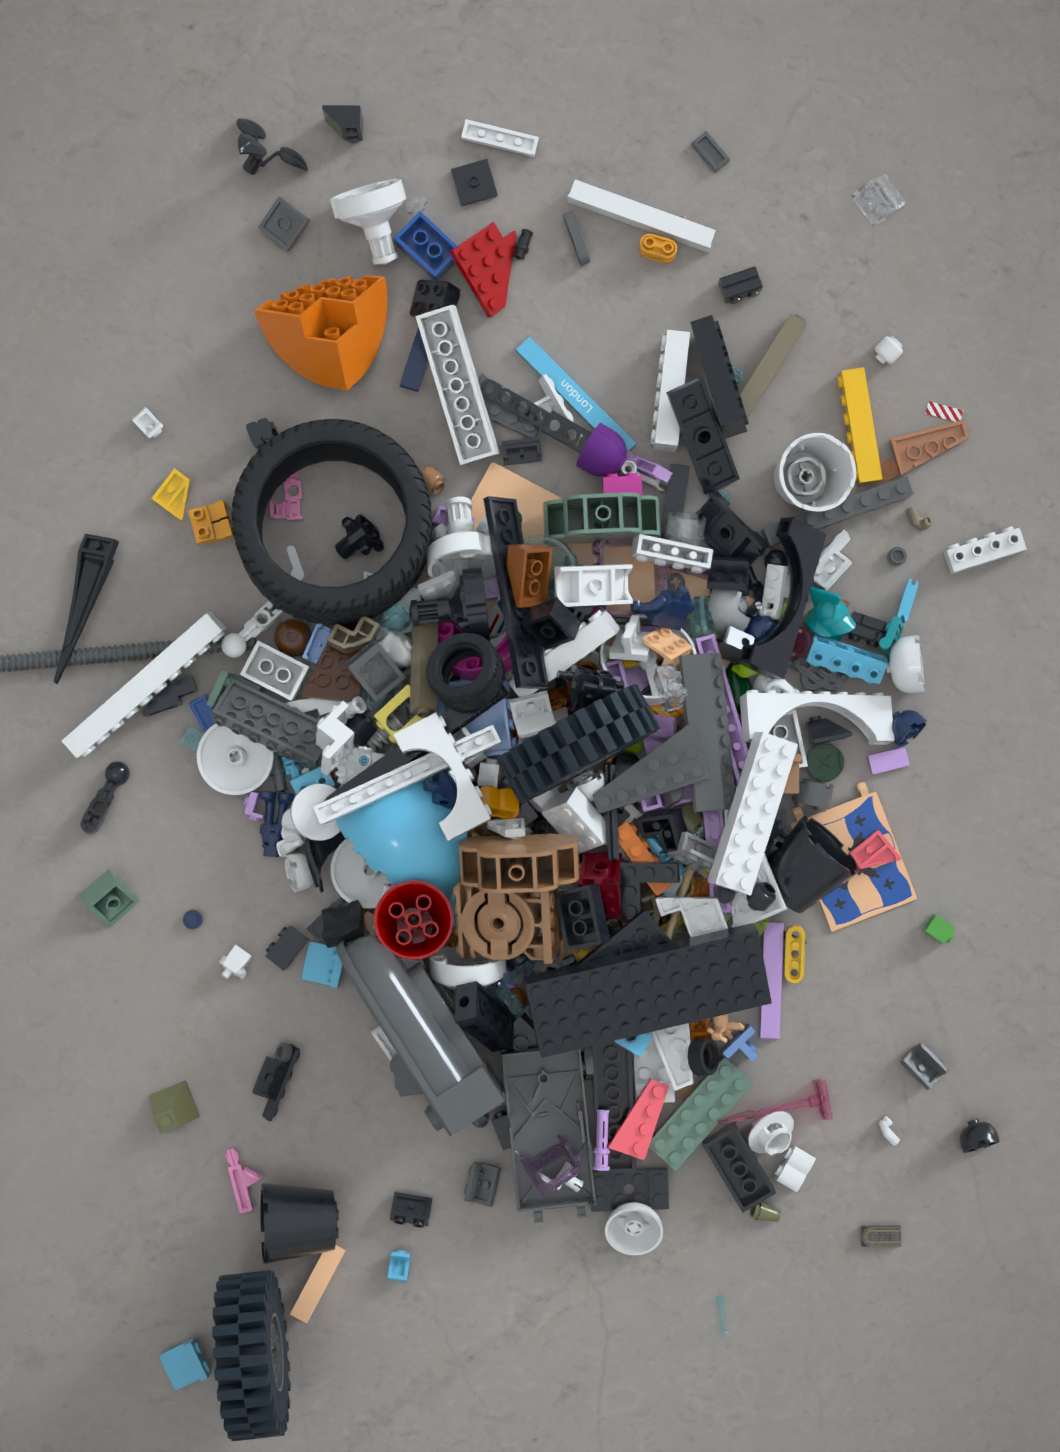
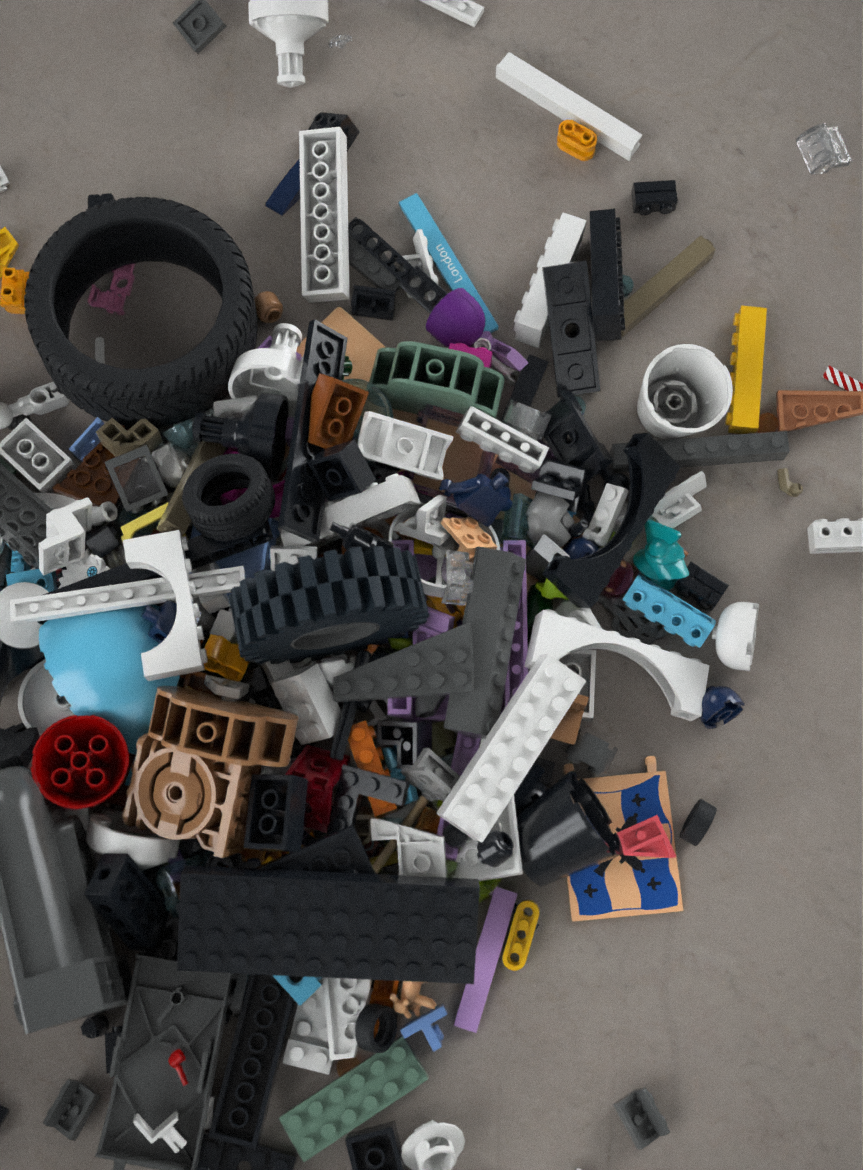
camera: 20 degrees right, 10 degrees down
(292, 637) = (66, 427): reddish brown cylinder -> none
(328, 328) = (208, 130): orange brick -> none
(361, 536) = (172, 340): black piece -> none
(426, 246) = (338, 79): blue brick -> none
(474, 182) = (405, 35): black plate -> none
(486, 266) = (392, 112): red wing -> none
(521, 247) = (434, 106): black pin -> none
(555, 1123) = (175, 1061): none -> red hand
(561, 1150) = (129, 1107): clear purple panel -> none
(576, 238) = (494, 111): dark grey beam -> none
(601, 1151) = (221, 1110): lavender pin -> none
(638, 1128) = (274, 1092): coral wing -> none
(710, 152) = (657, 65): dark grey tile -> none
(818, 1100) = (503, 1123): clear pink piece -> none
(824, 731) = (625, 686): black slope -> none
(824, 762) = (614, 722): dark green tile -> none
(888, 350) = (798, 300): white head -> none
(888, 760) = (688, 740): lavender tile -> none
(894, 629) = (731, 593): teal plate -> none
(897, 556) = (754, 517): dark grey plate -> none
(907, 601) = (752, 569): medium azure piece -> none
(912, 826) = (698, 822): none -> black tyre
(939, 929) = (700, 955): bright green brick -> none

